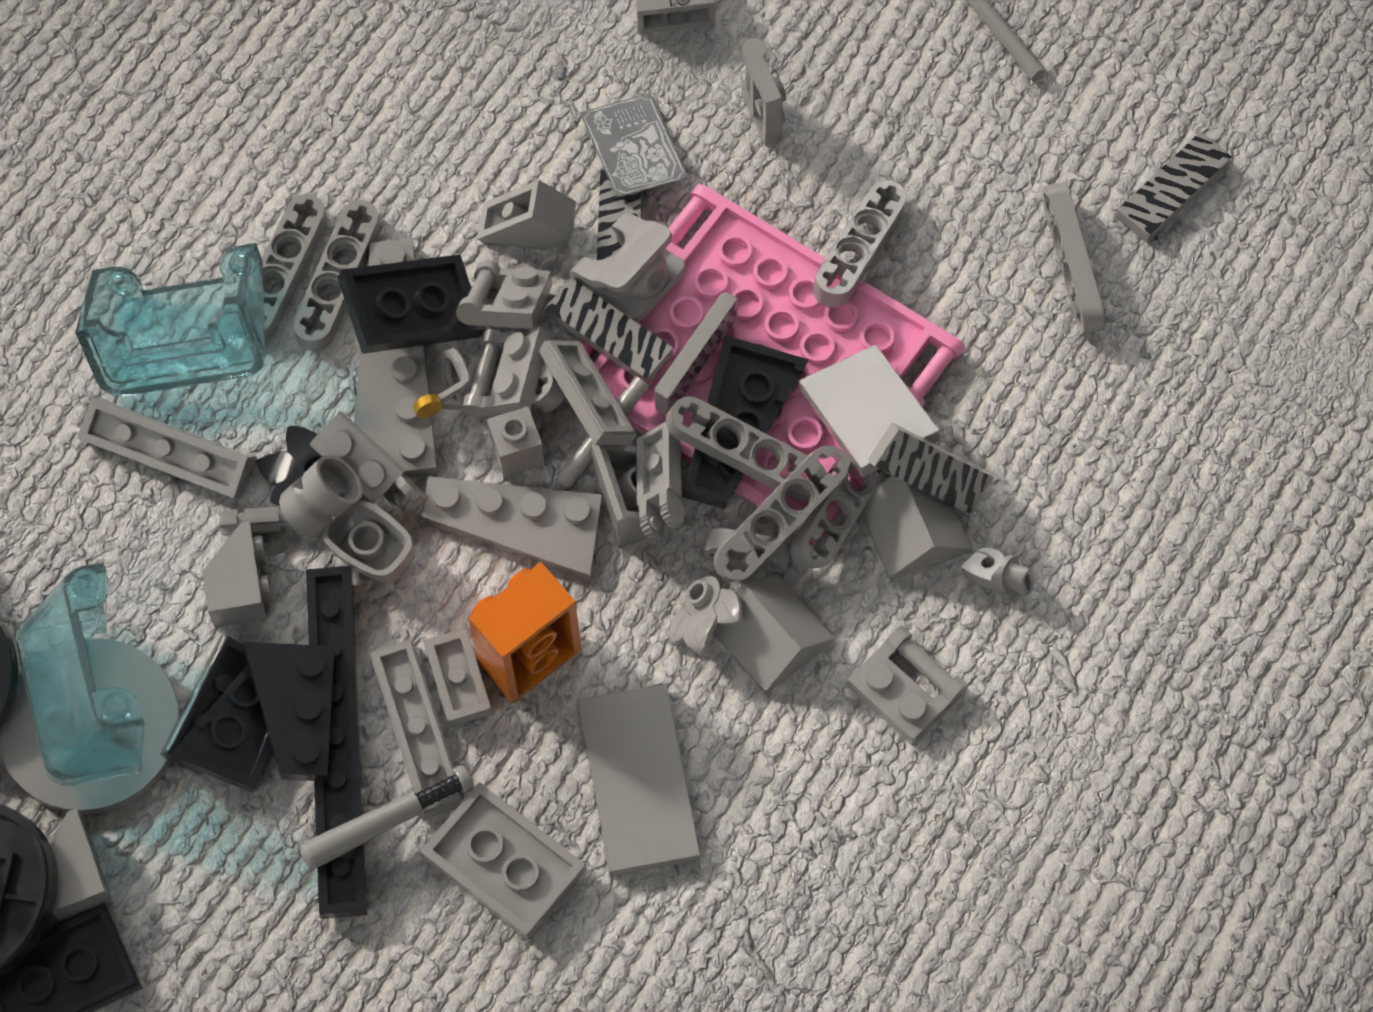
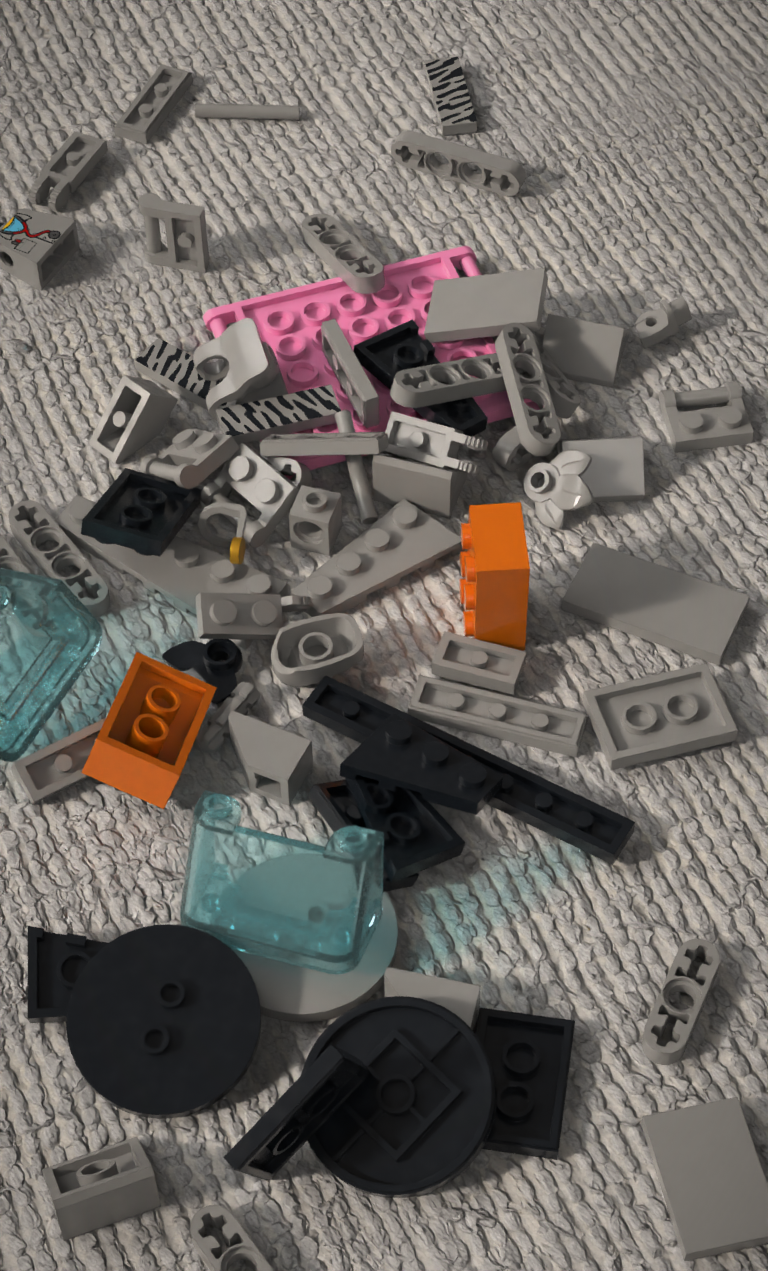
camera: 55 degrees left, 15 degrees down
(191, 472) = (149, 730): none -> orange slope
(324, 491) = (255, 650): light grey wheel -> none
(380, 820) = (568, 769): light grey piece -> none
(633, 145) = (133, 333): sticker -> none
(930, 468) = (563, 295): light grey tile -> none

